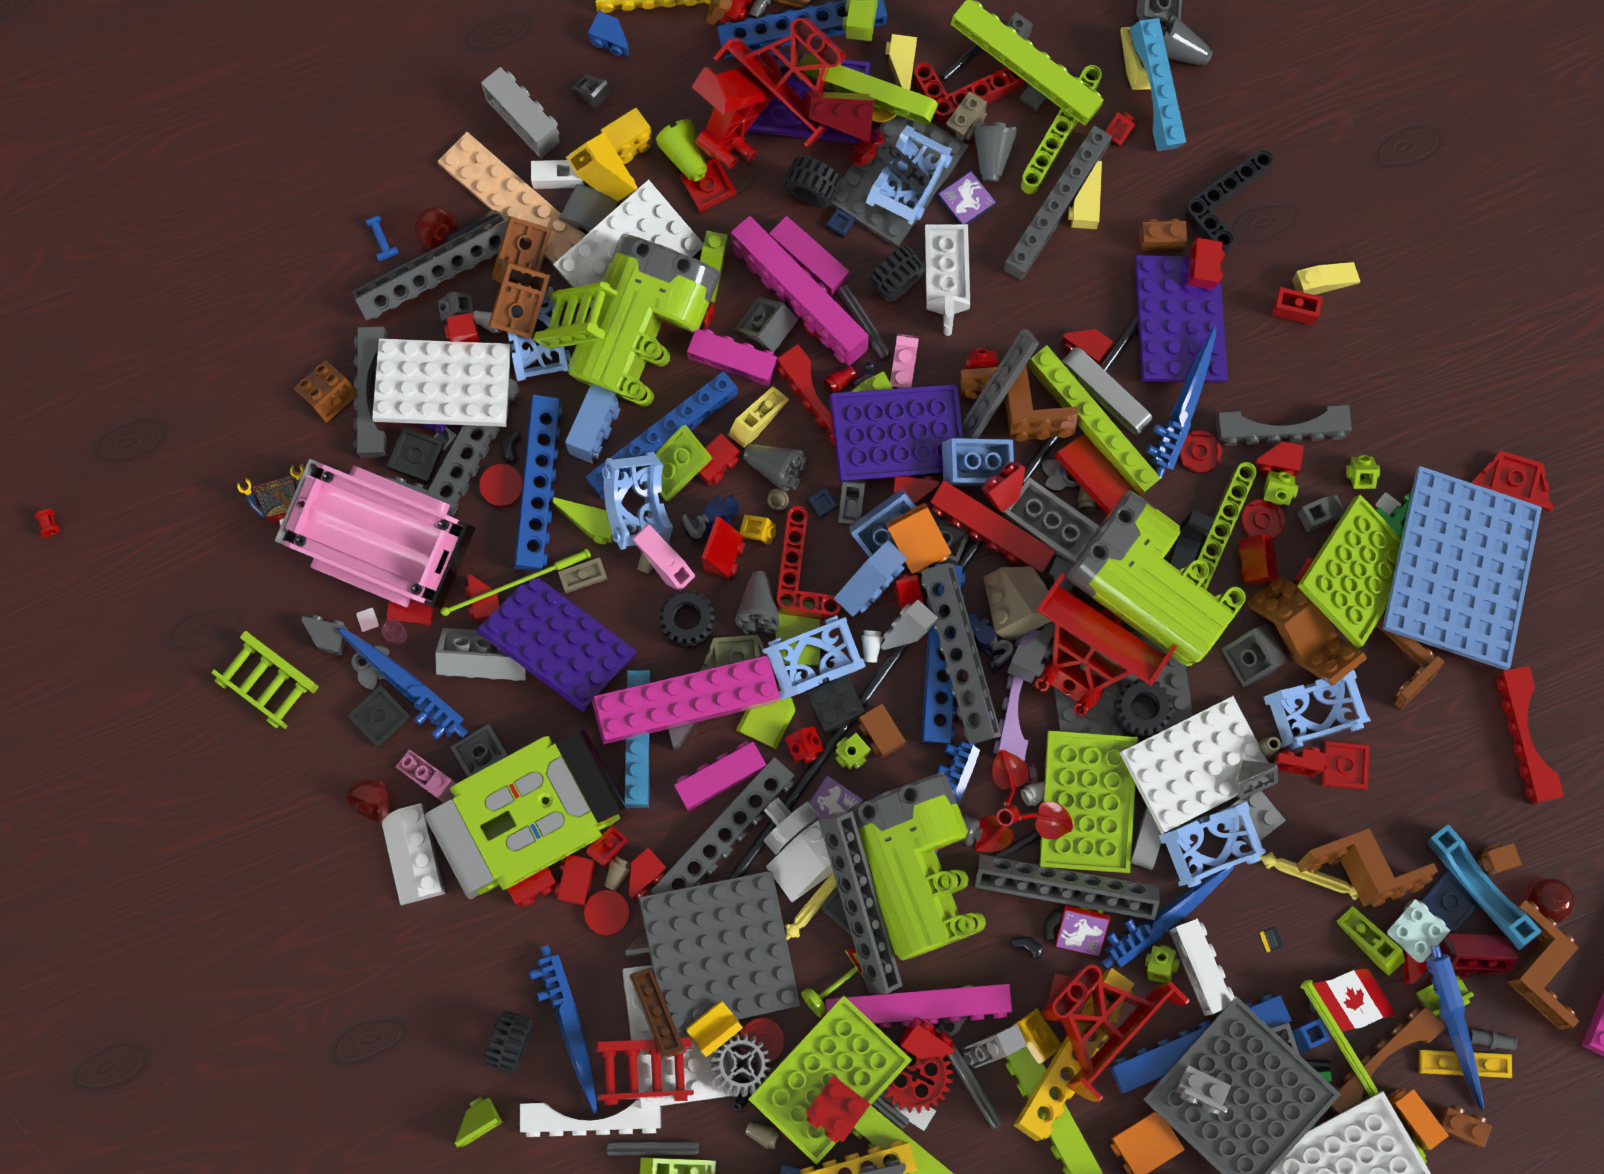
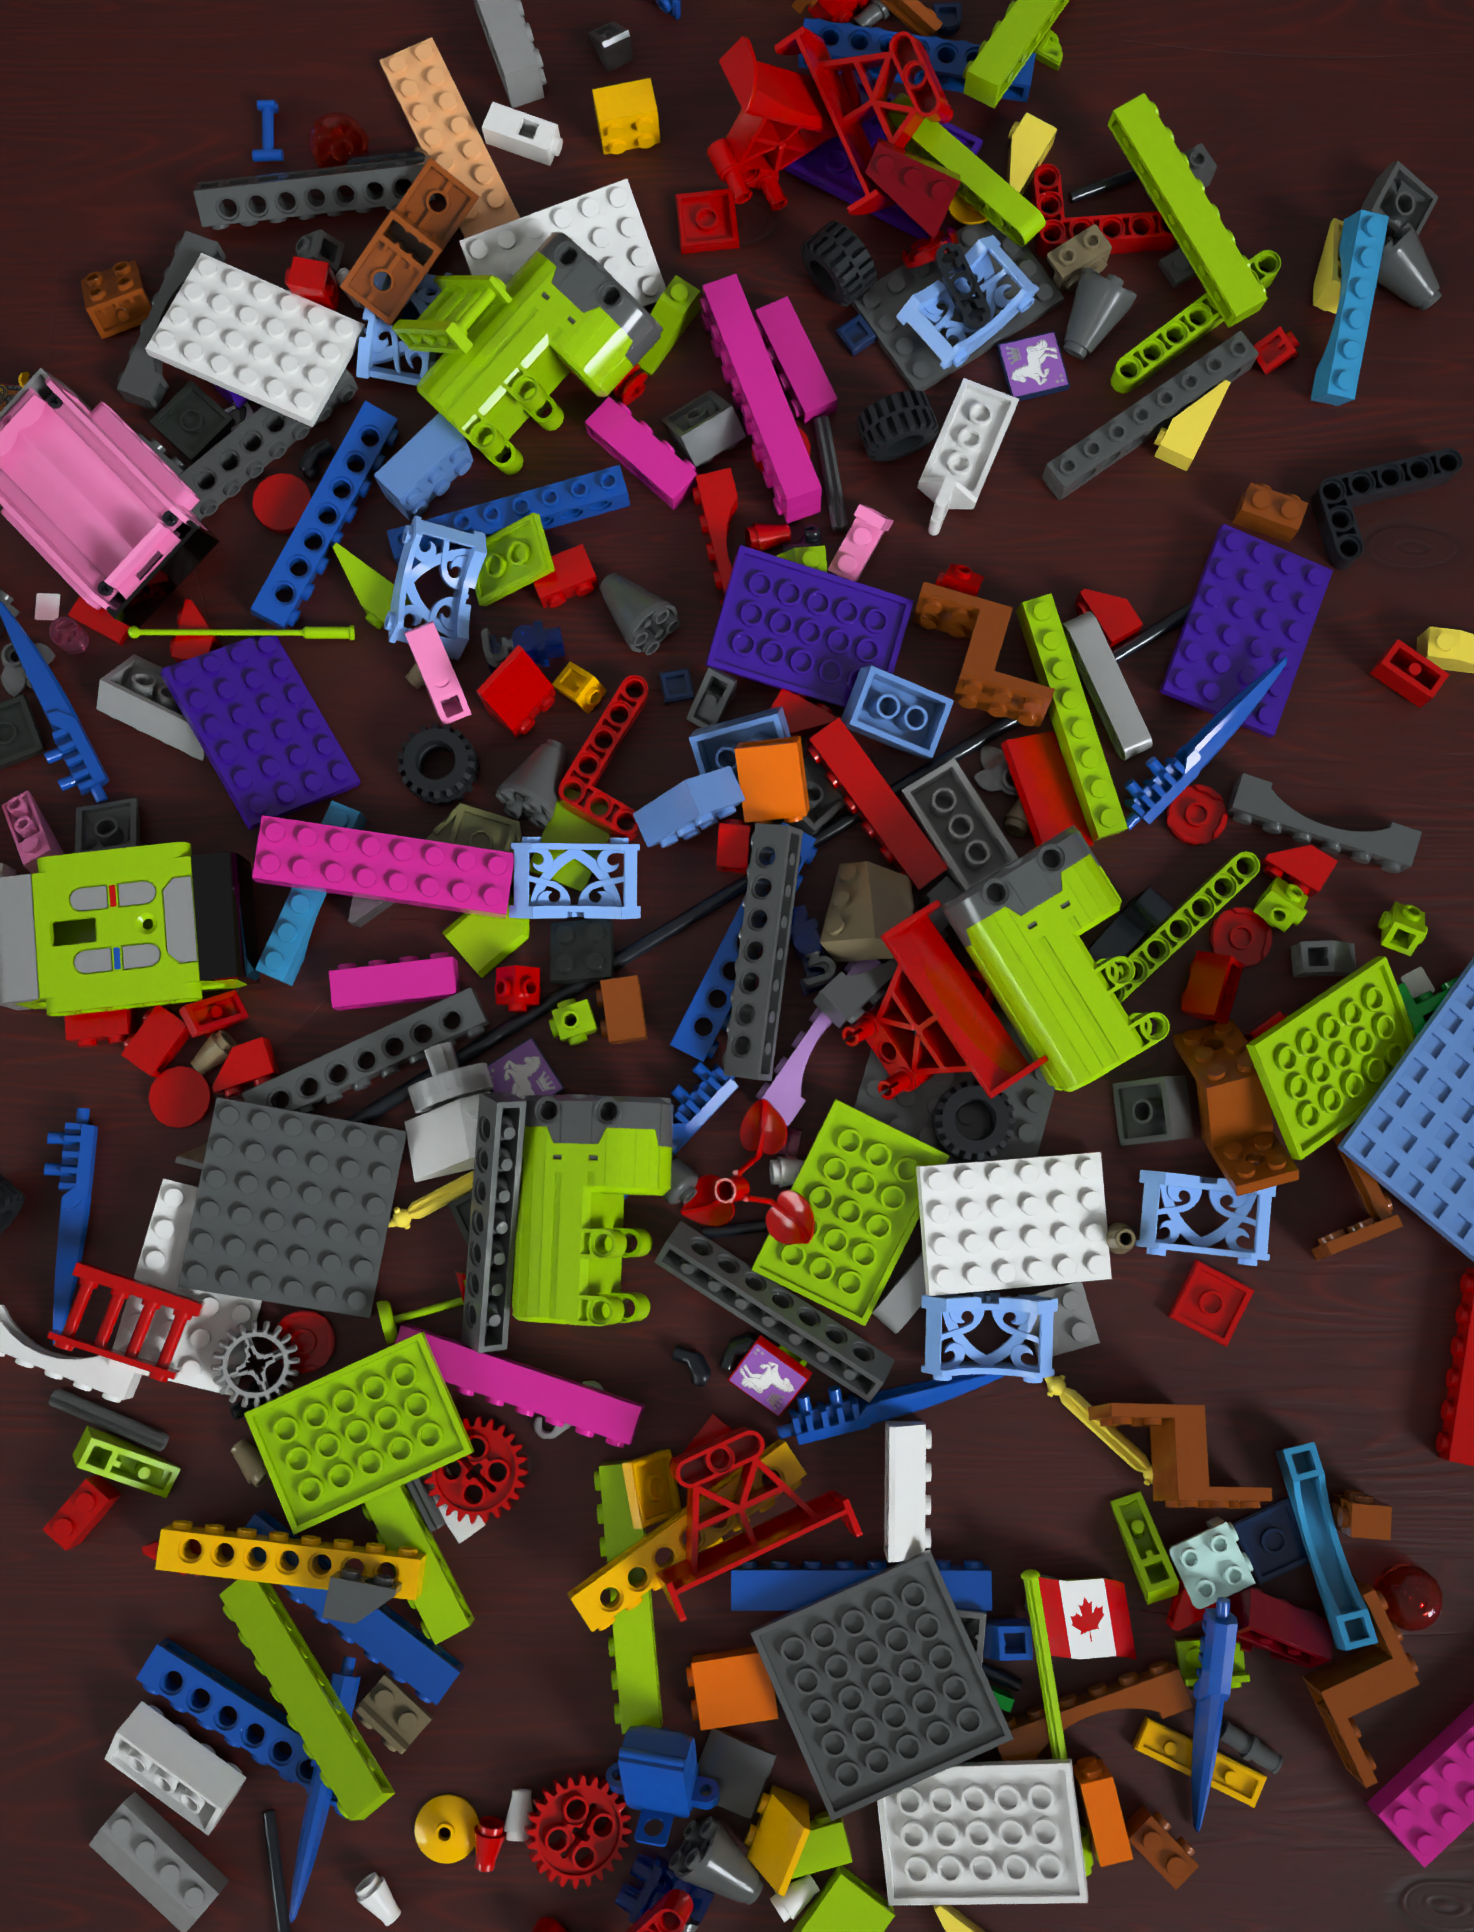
camera: 30 degrees right, 5 degrees up
(582, 575) = (333, 657): dark tan plate -> none
(587, 208) = (537, 188): dark grey slope -> none
(602, 168) = (573, 140): yellow slope -> none
(656, 1013) = (172, 1256): reddish brown tile -> none
(680, 148) = (687, 155): lime cone -> none
(714, 1028) = (240, 1304): yellow panel -> none
(757, 417) = (640, 542): light yellow slope -> none
(777, 499) = (620, 658): dark tan plate -> none
(837, 1110) = (346, 1477): red plate -> none
(871, 645) = (659, 894): white cone -> none
(910, 627) = (713, 889): light grey slope -> none
(925, 1041) = (502, 1435): red slope -> none
(972, 1085) = (541, 1500): dark grey axle -> none
(993, 1047) = (587, 1480): light grey slope -> none
(999, 384) = (966, 618): dark grey plate -> none
(1005, 487) = (916, 758): red slope -> none
(1162, 964) = (849, 1471): lime brick -> none
(1200, 1087) = (831, 1659): light grey bracket -> none
(1205, 263) = (1310, 569): red brick -> none
(1256, 777) = (1082, 1272): flat silver slope -> none
(1271, 939) = (1014, 1489): black sticker -> none
(1307, 762) = (1159, 1279): red plate -> none

